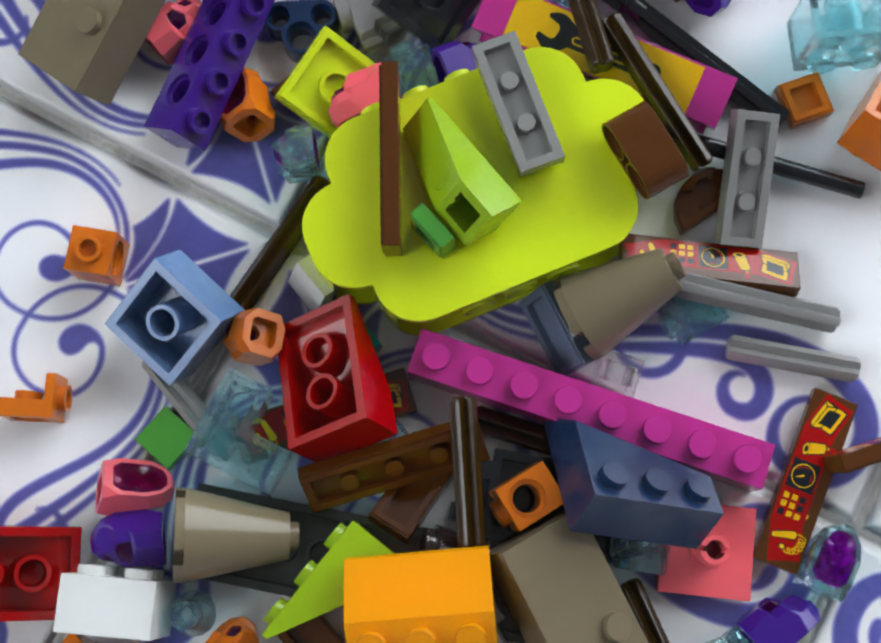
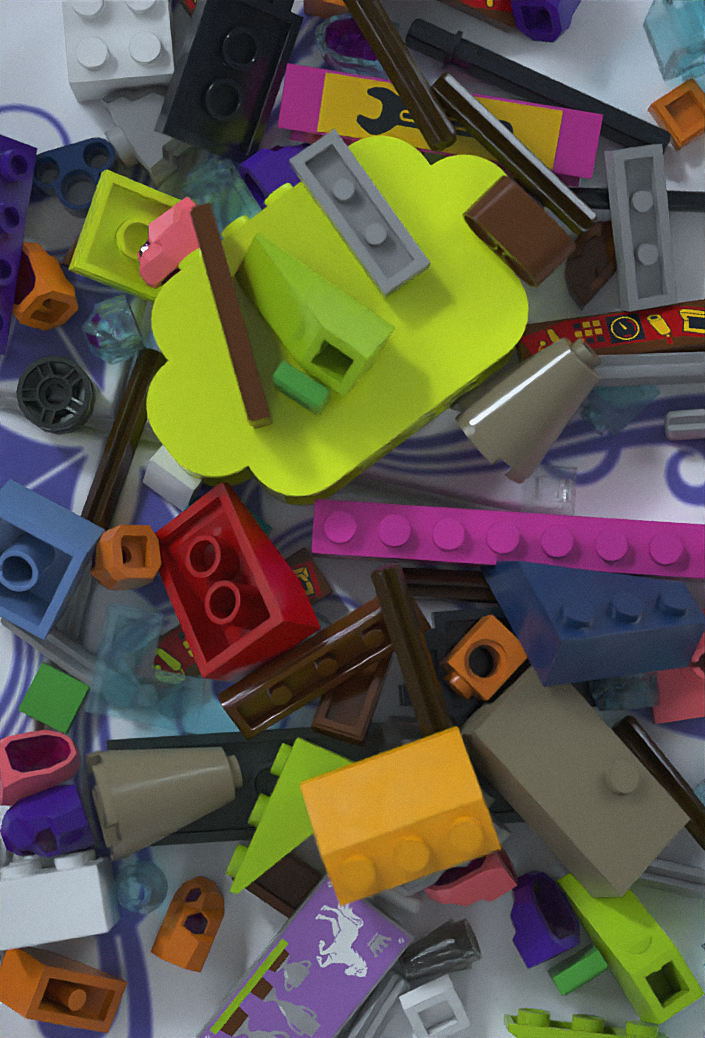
camera: 20 degrees left, 5 degrees up
(222, 186) = (35, 389): none -> pearl dark grey wheel
(553, 332) = (464, 462): sand blue tile -> none

